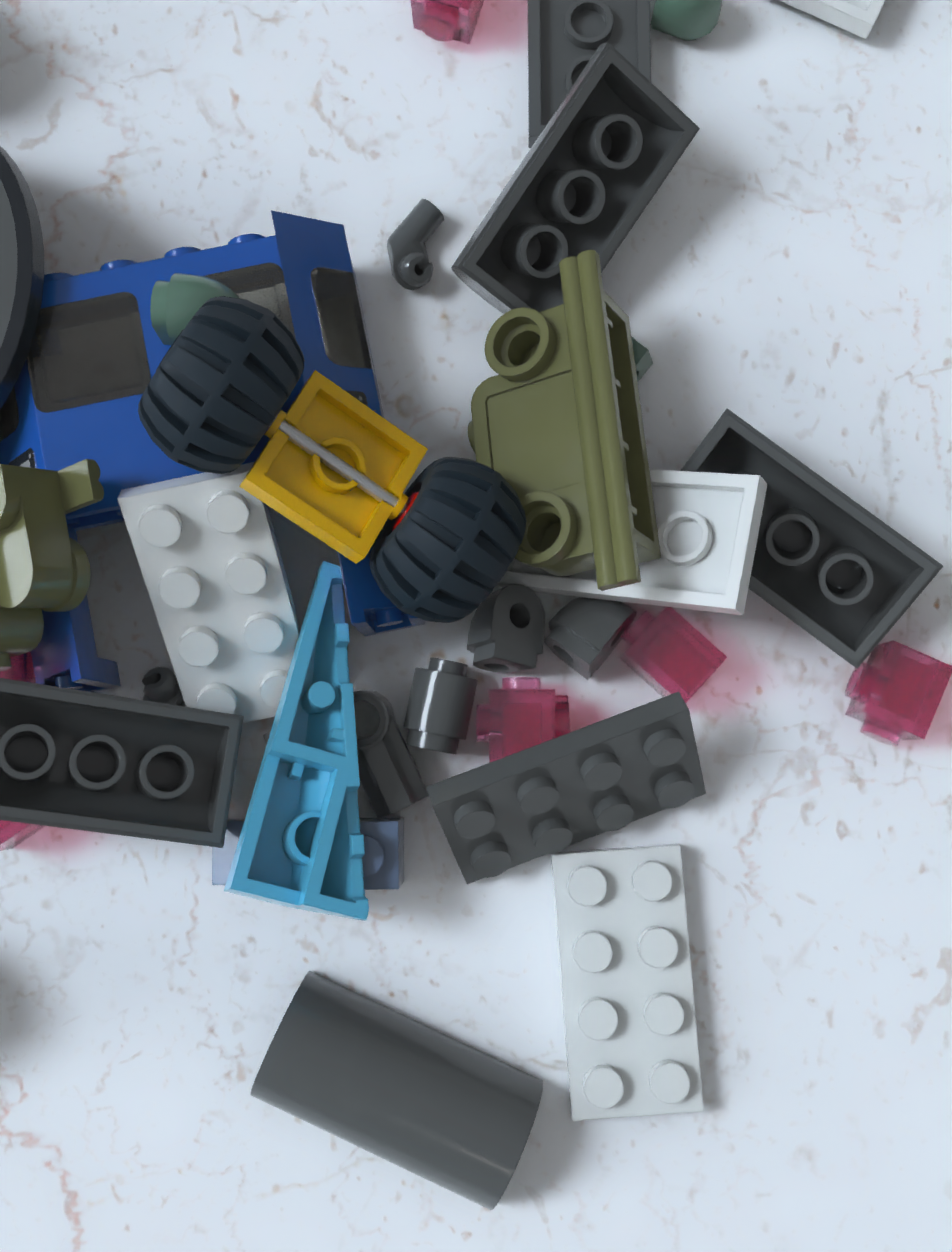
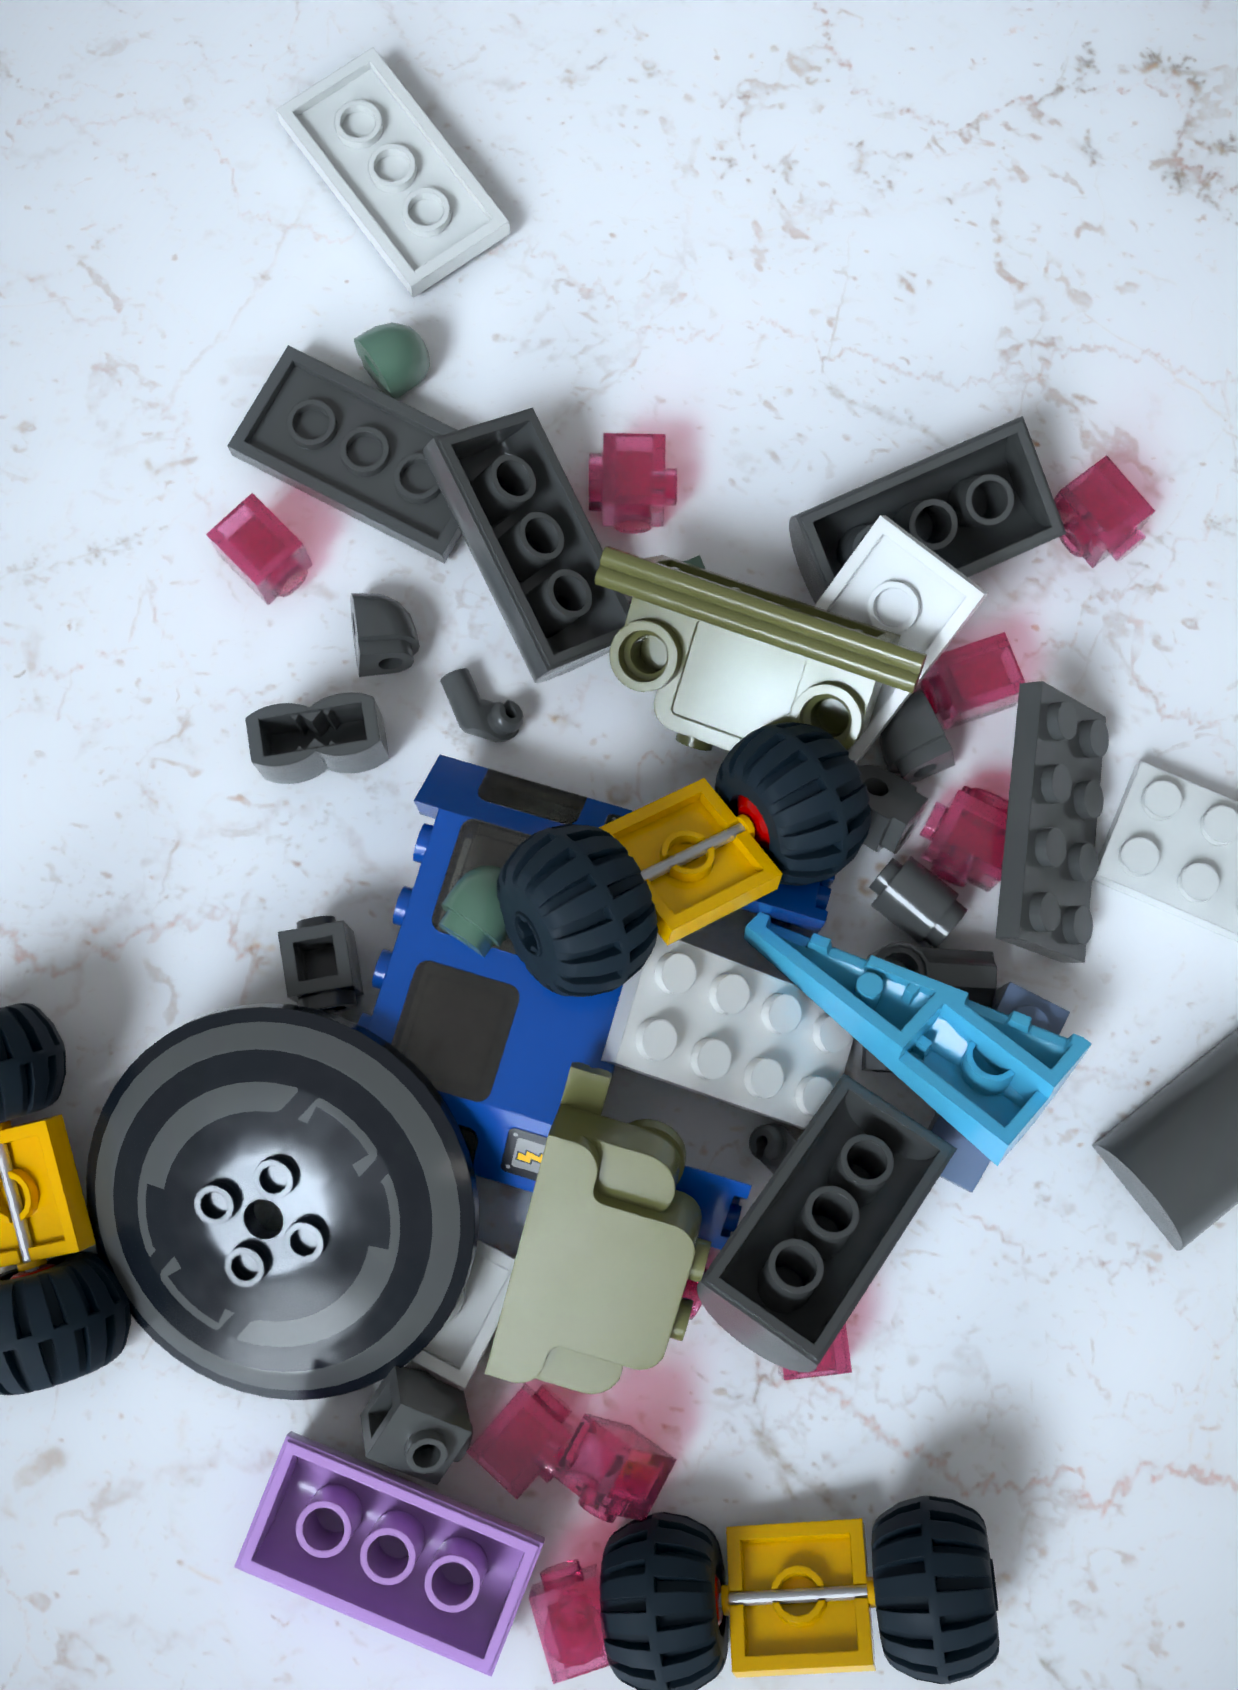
camera: 70 degrees left, 5 degrees down
(111, 225) = (321, 964): none -> dark grey brick
(305, 118) = (301, 742): none -> dark grey brick
(431, 125) = (382, 634): none -> dark grey piece
(689, 260) = (631, 481): none -> clear pink brick

